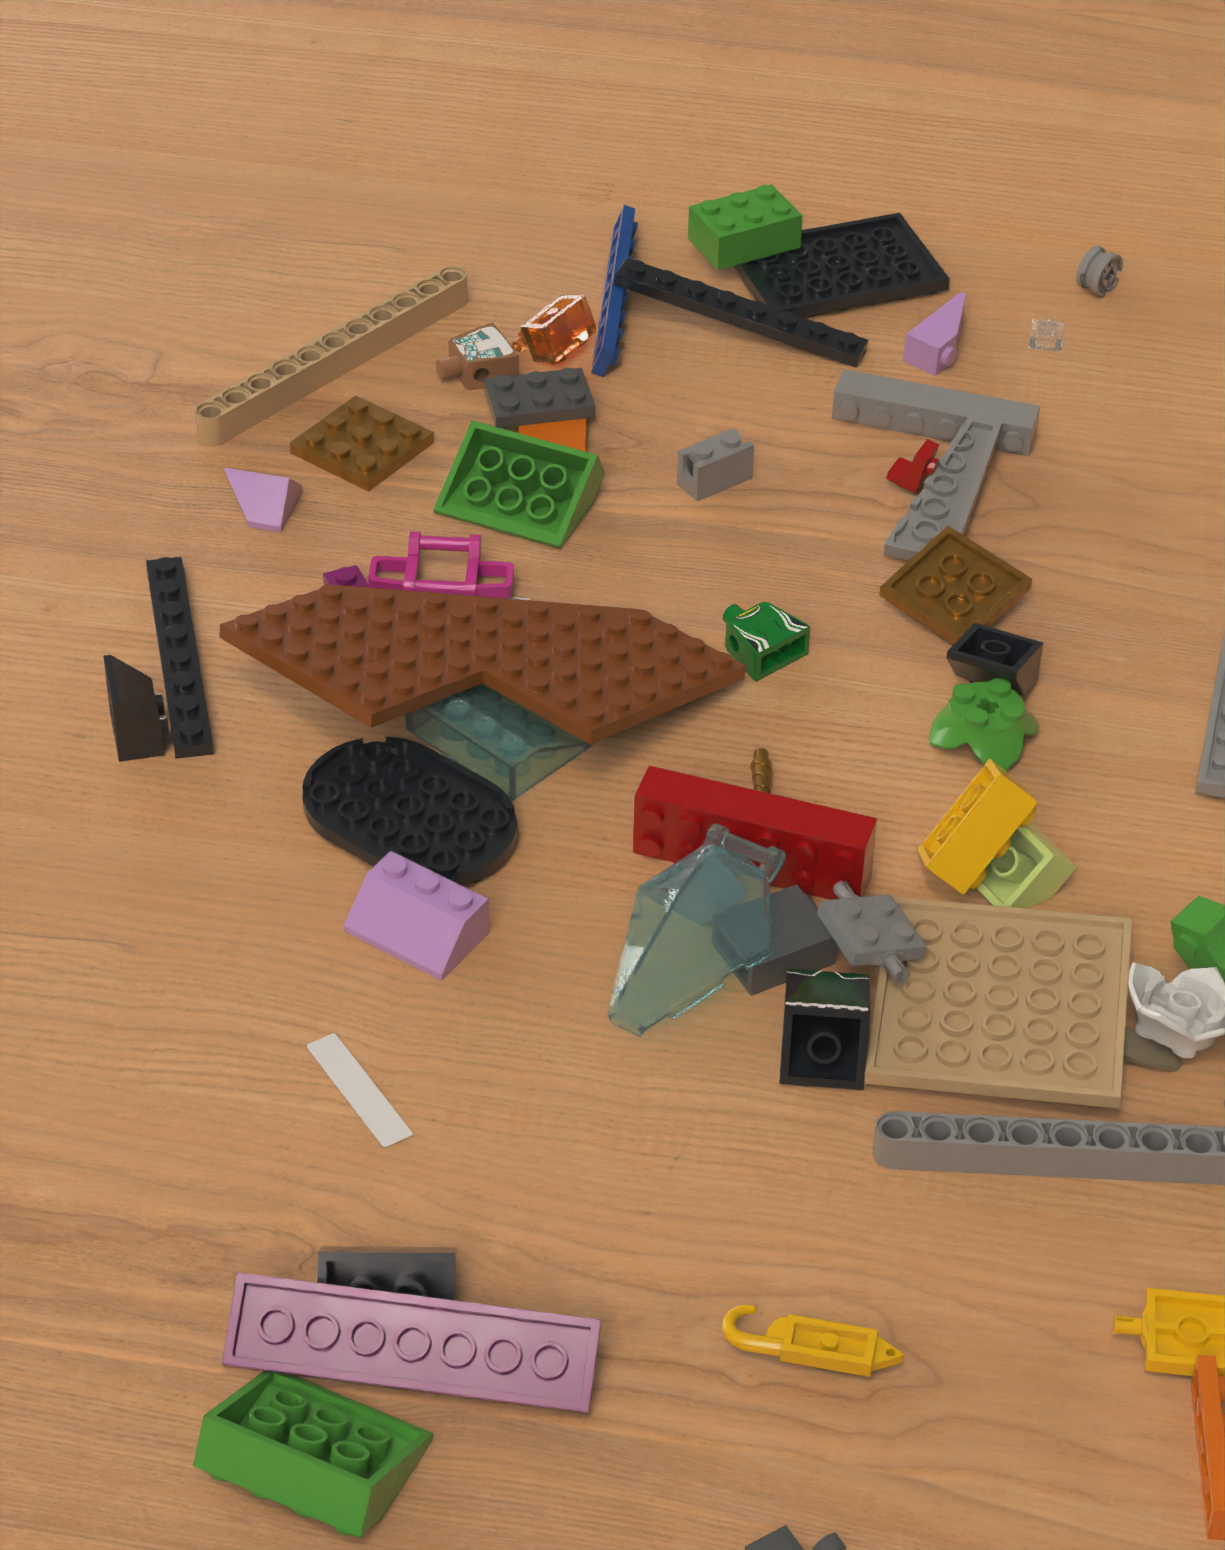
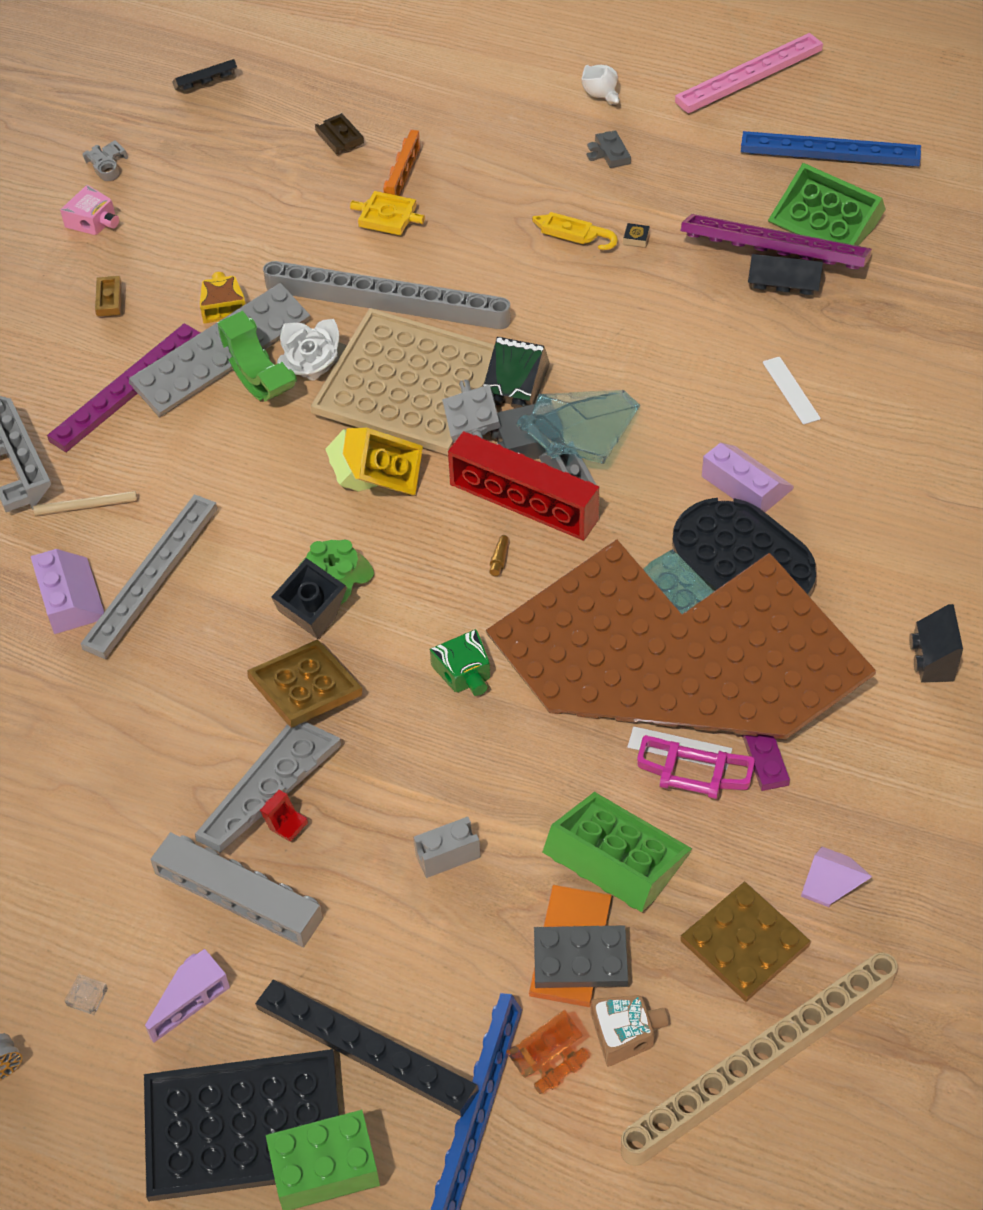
camera: 165 degrees left, 10 degrees up
(179, 658) = (905, 725): black plate -> none
(689, 1358) = (636, 235): none -> tile

